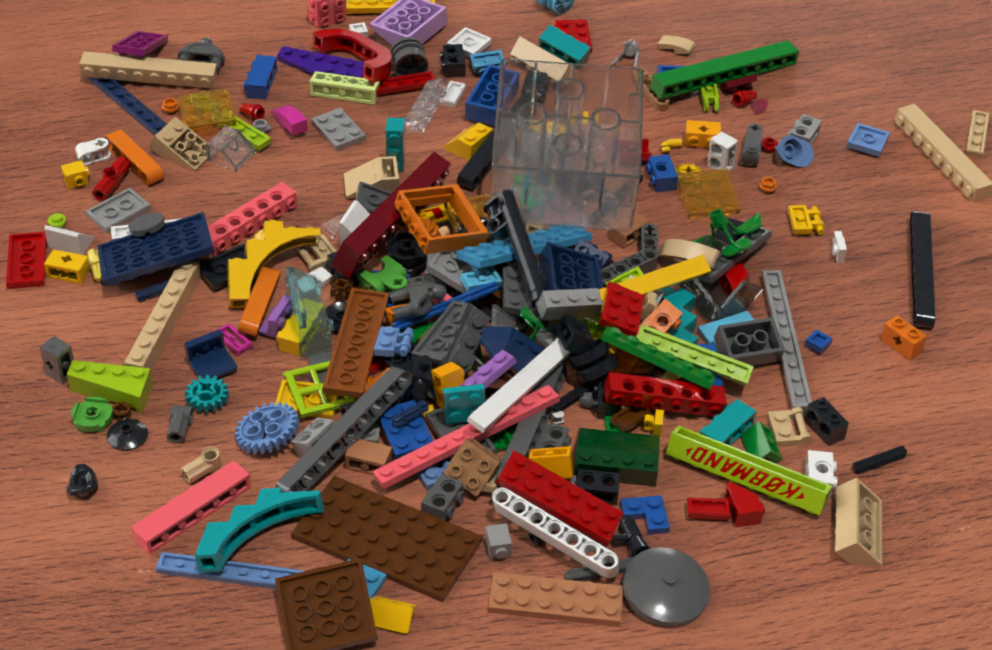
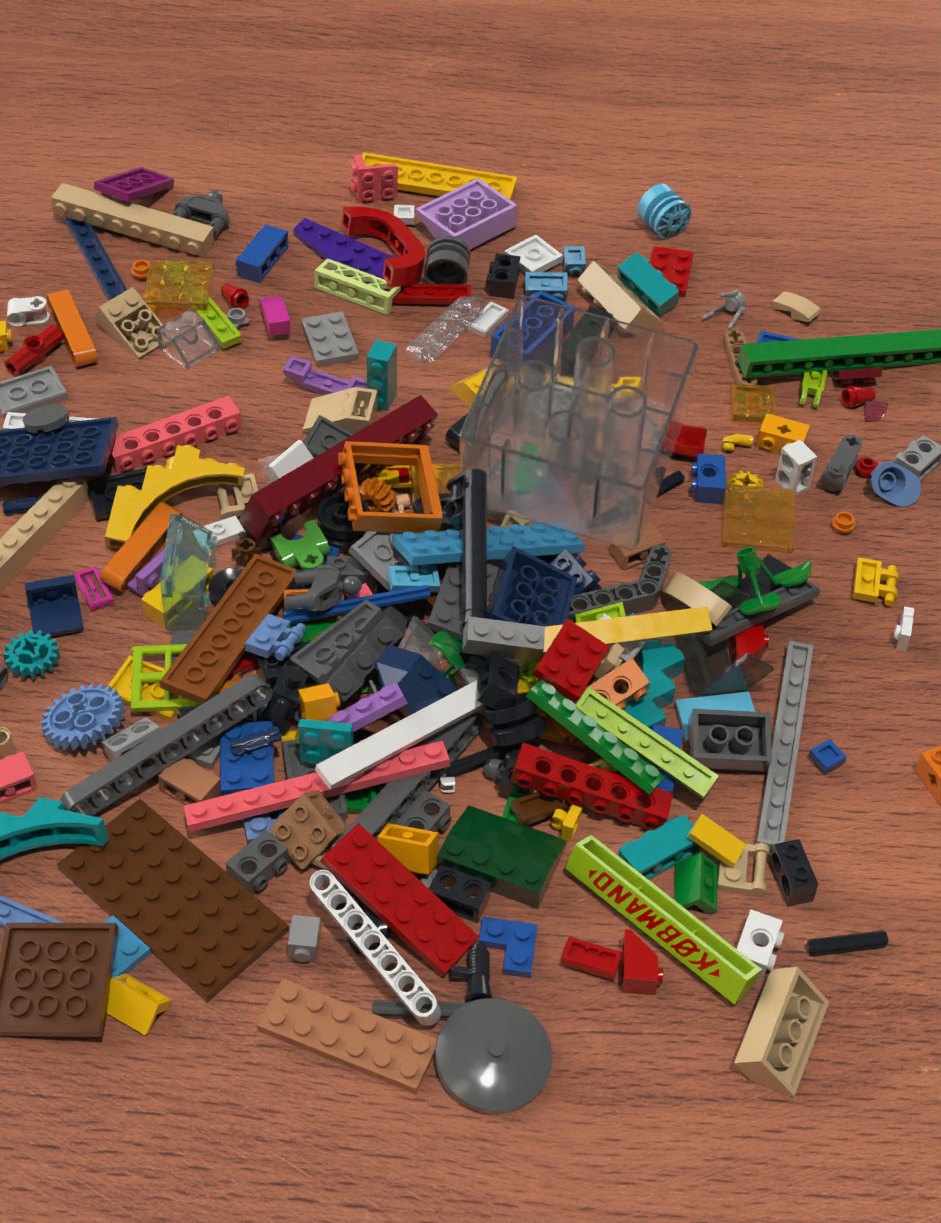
camera: 15 degrees right, 5 degrees up
(342, 160) = (317, 381): none -> medium lavender slope
(501, 40) = (574, 259): none -> dark azure bracket
(671, 115) = (752, 402): none -> clear yellow plate
(767, 410) = (716, 840): none -> yellow tile

